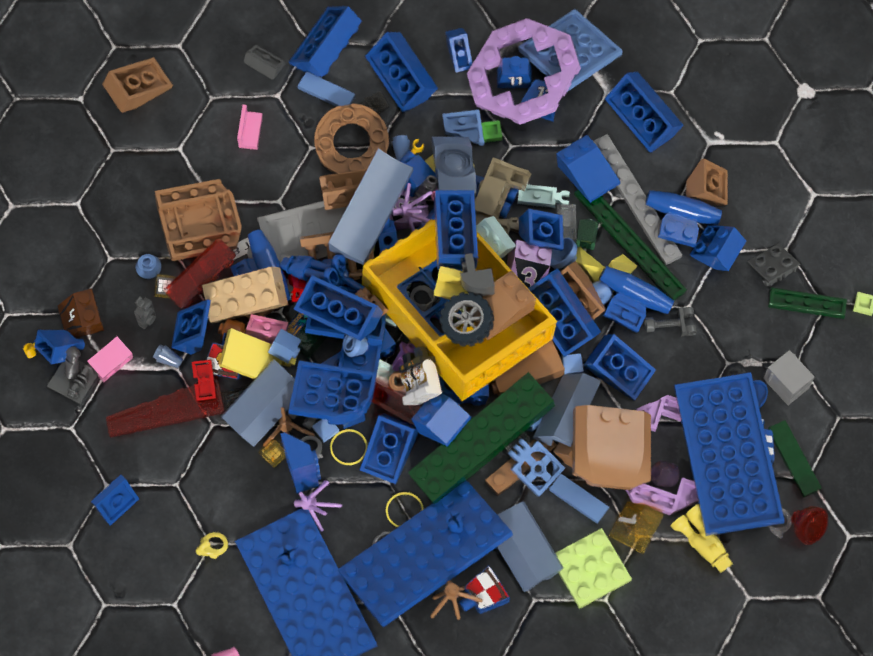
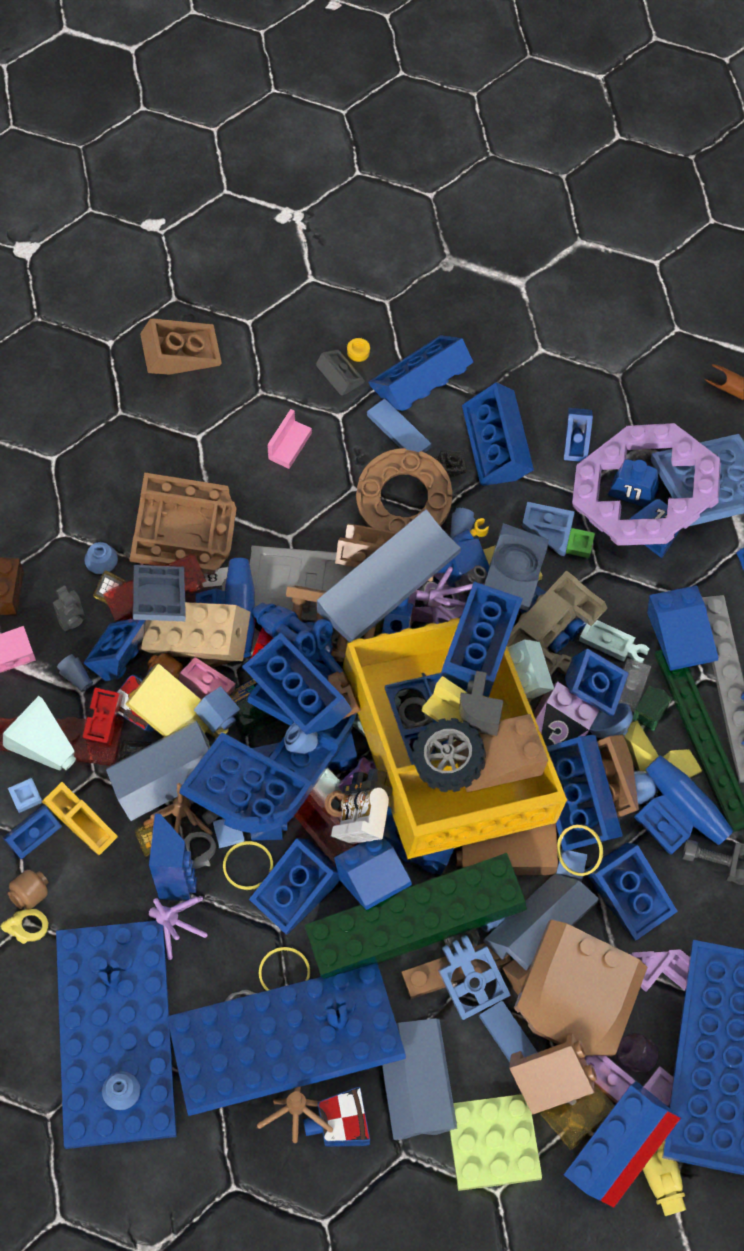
camera: 20 degrees right, 5 degrees down
(167, 412) = (39, 737): none -> light aqua slope
(170, 456) = (25, 795): none -> light blue tile
(186, 479) = (32, 831): none -> blue slope
(203, 520) = (28, 889): none -> medium nougat head
(210, 277) = (159, 593): none -> sand blue slope
(216, 458) = (79, 818): none -> yellow slope
(271, 39) = (358, 349): none -> yellow tile
(322, 629) = (123, 1095): none -> medium blue cone
(592, 352) = (600, 849): none -> light yellow piece
(615, 509) = (553, 1075): none -> panel
(677, 537) = (622, 1145): none -> blue slope

